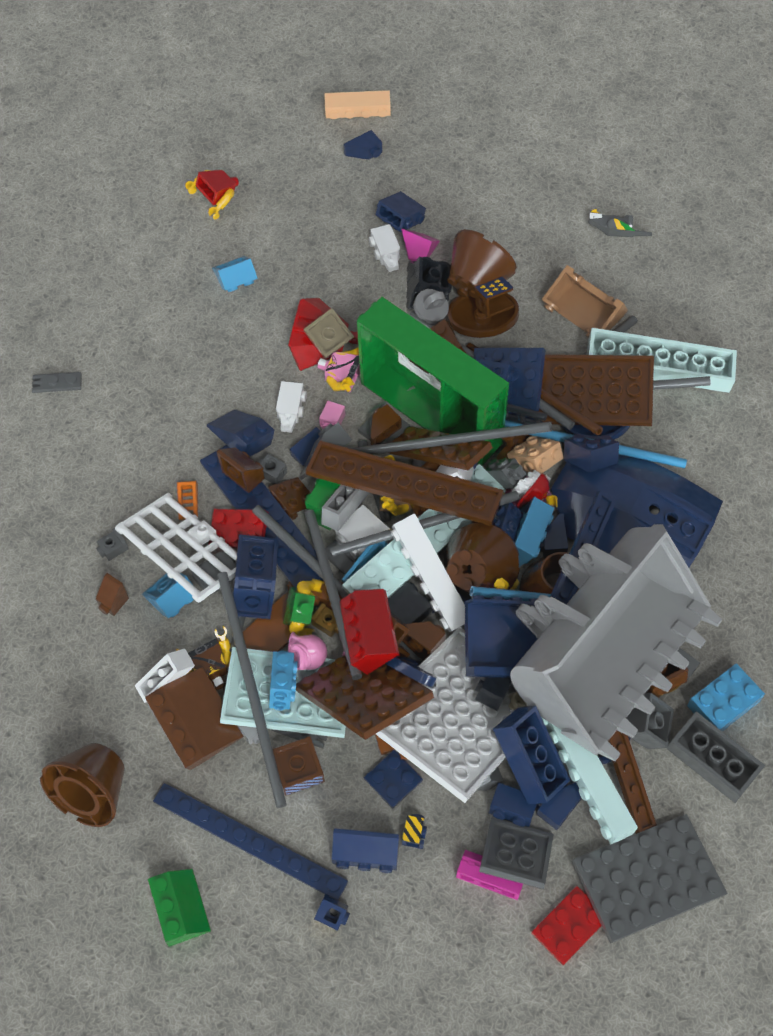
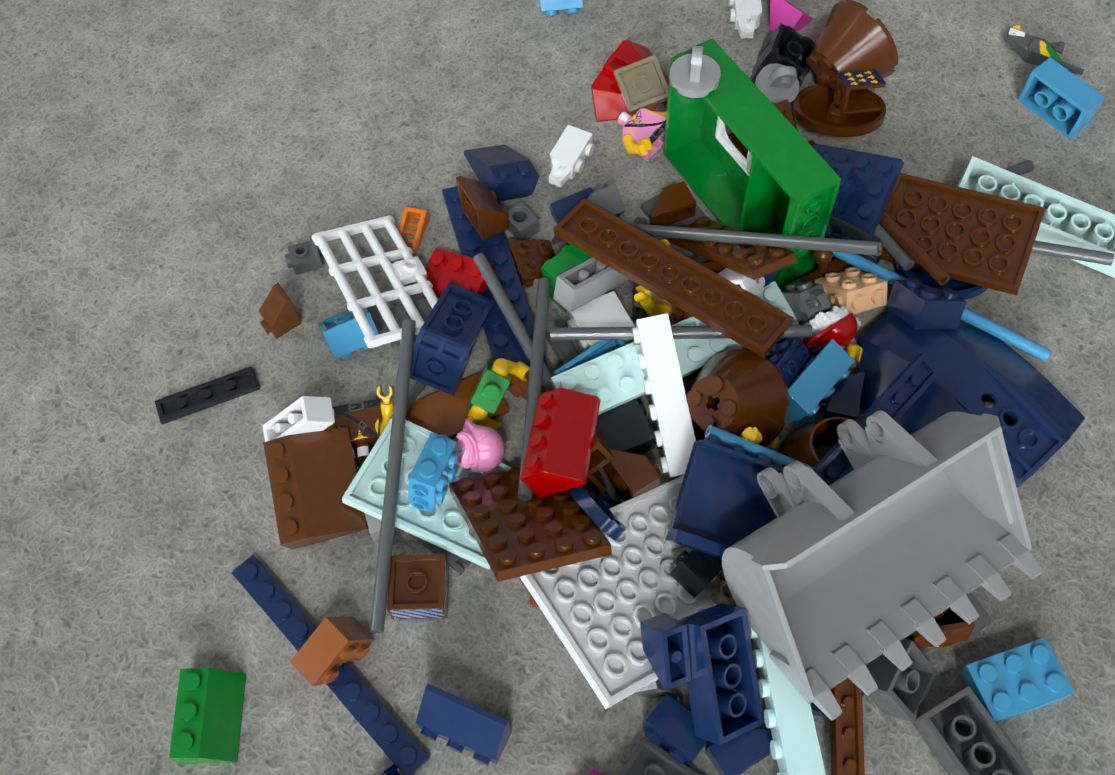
camera: 20 degrees right, 0 degrees up
(56, 382) = (318, 64): dark grey hinge -> none
(77, 675) = (206, 395): none -> black tile
(85, 784) = (156, 523): reddish brown cone -> none
(251, 828) = (330, 646): none -> dark orange brick
(319, 620) = (513, 413): pearl gold brick -> none
(332, 414) = (617, 175): bright pink brick -> none
(379, 330) = (695, 74): none -> light grey tile
(393, 779) = (532, 644): dark blue plate -> none
(414, 831) = (536, 721): brick -> none
(492, 750) = (667, 649): none -> dark blue slope
(583, 302) = (970, 127): medium nougat windscreen -> none
(641, 262) = (1061, 98): none -> dark azure brick

